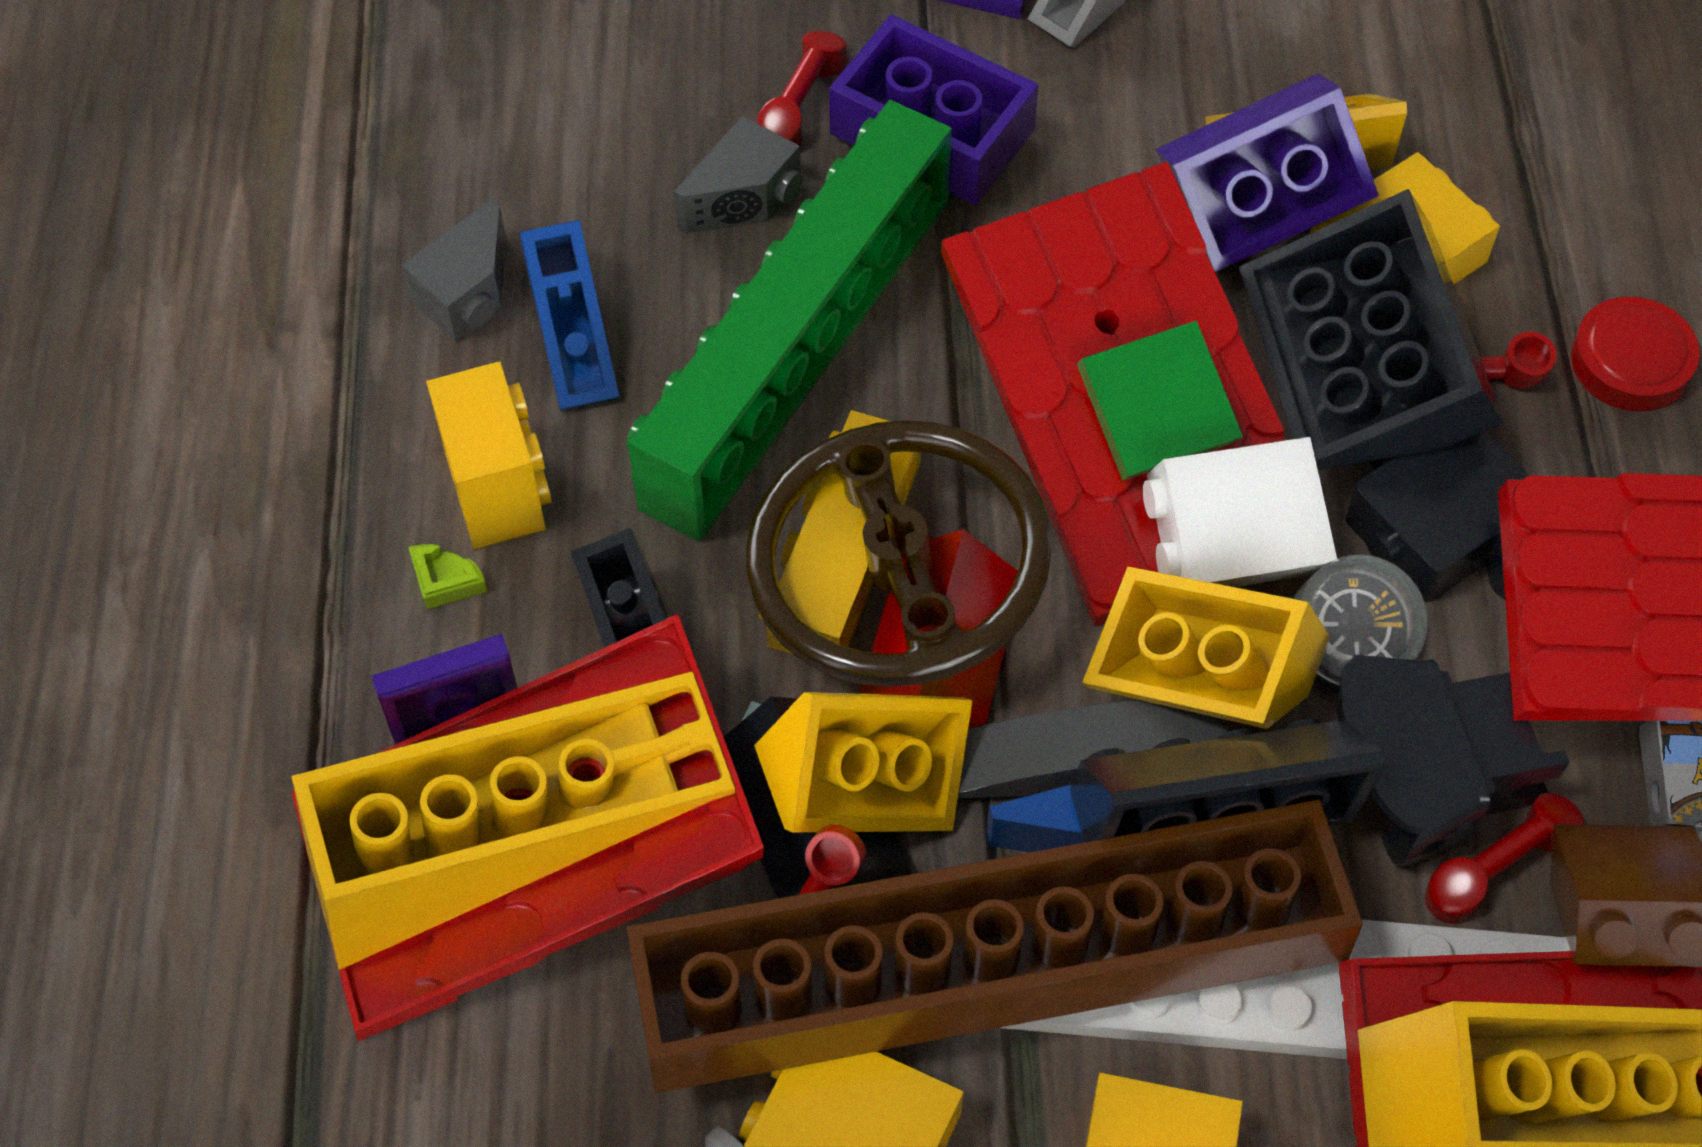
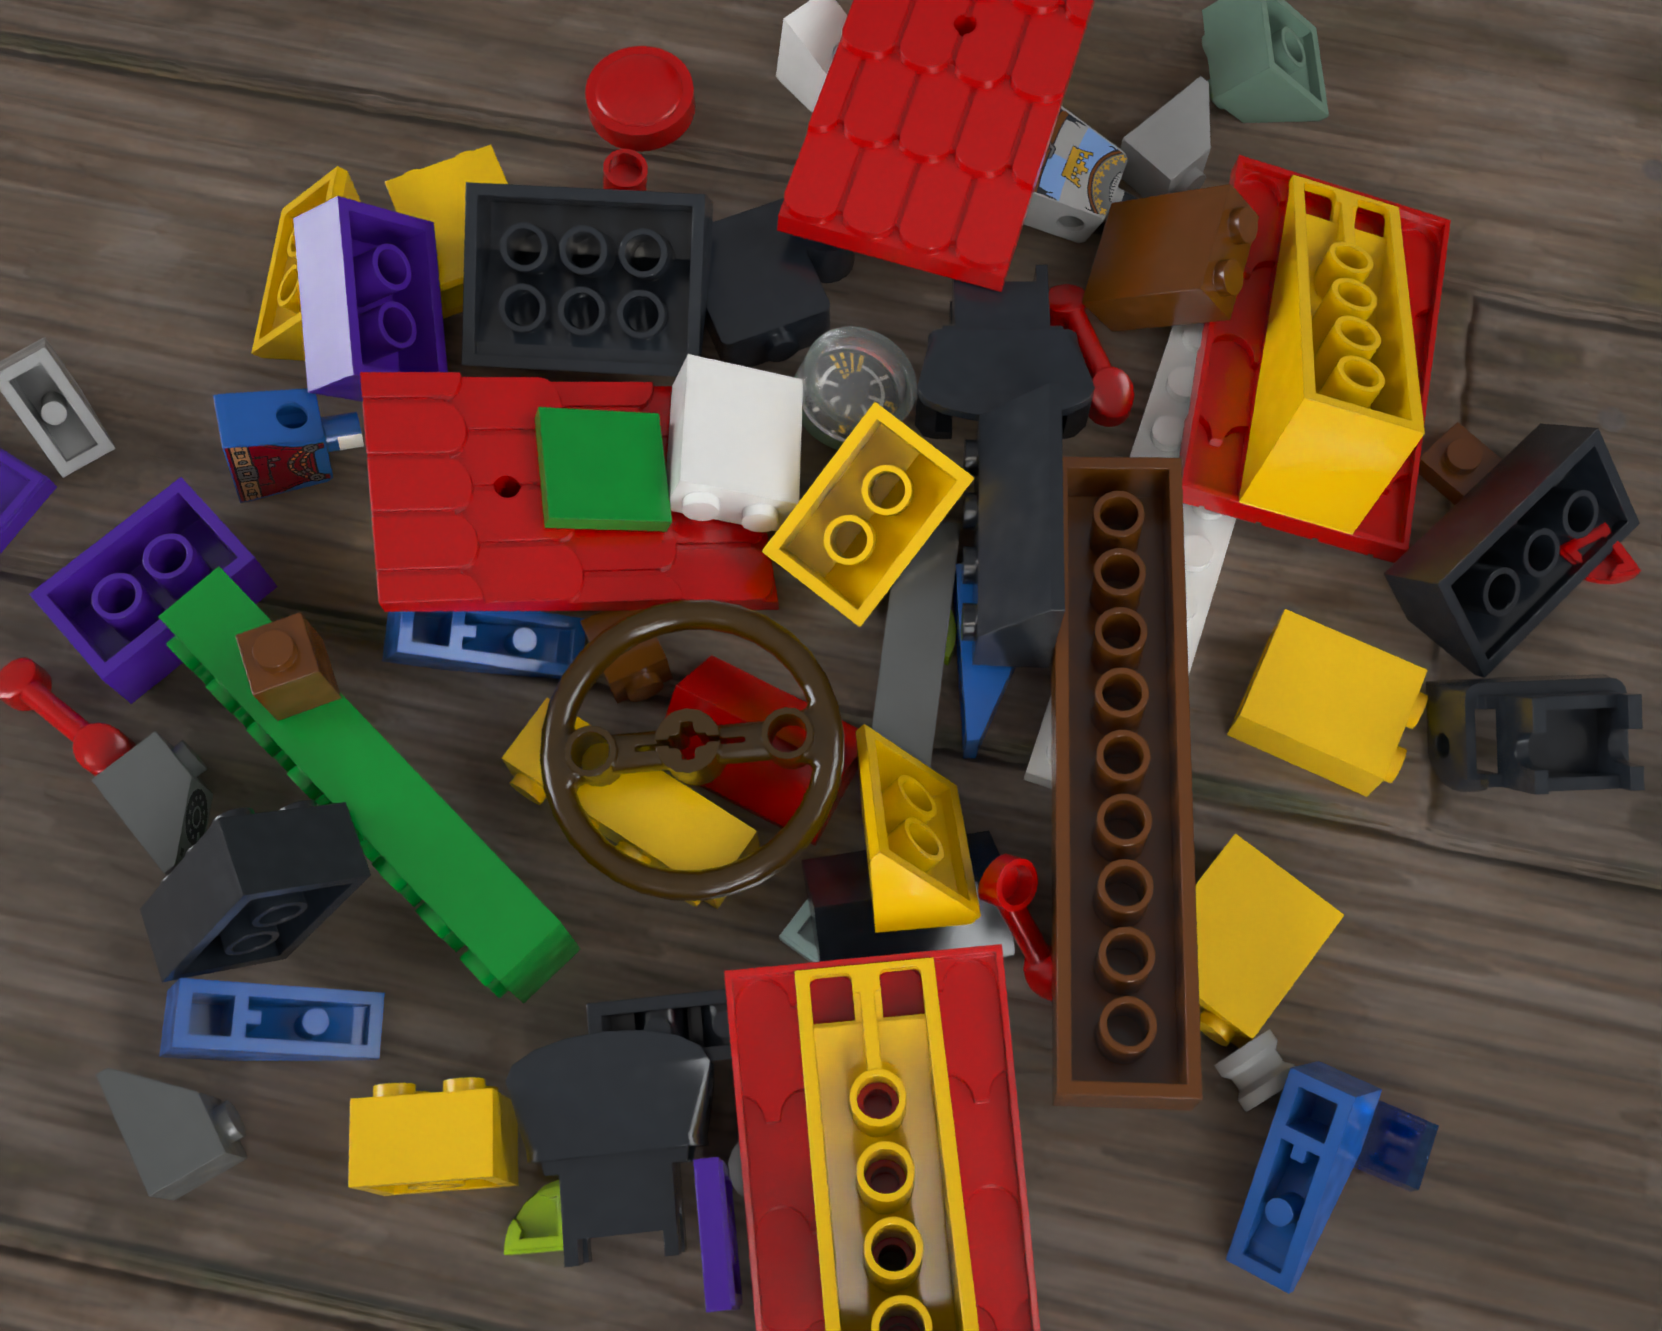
camera: 75 degrees left, 10 degrees up
(531, 575) = (614, 1126): none -> black piece
(668, 244) = (253, 888): none -> black brick
(862, 194) = (288, 666): none -> reddish brown brick
(964, 373) = (485, 641): none -> blue slope
(981, 506) = (637, 672): none -> reddish brown brick
(1103, 136) = (280, 440): none -> blue torso

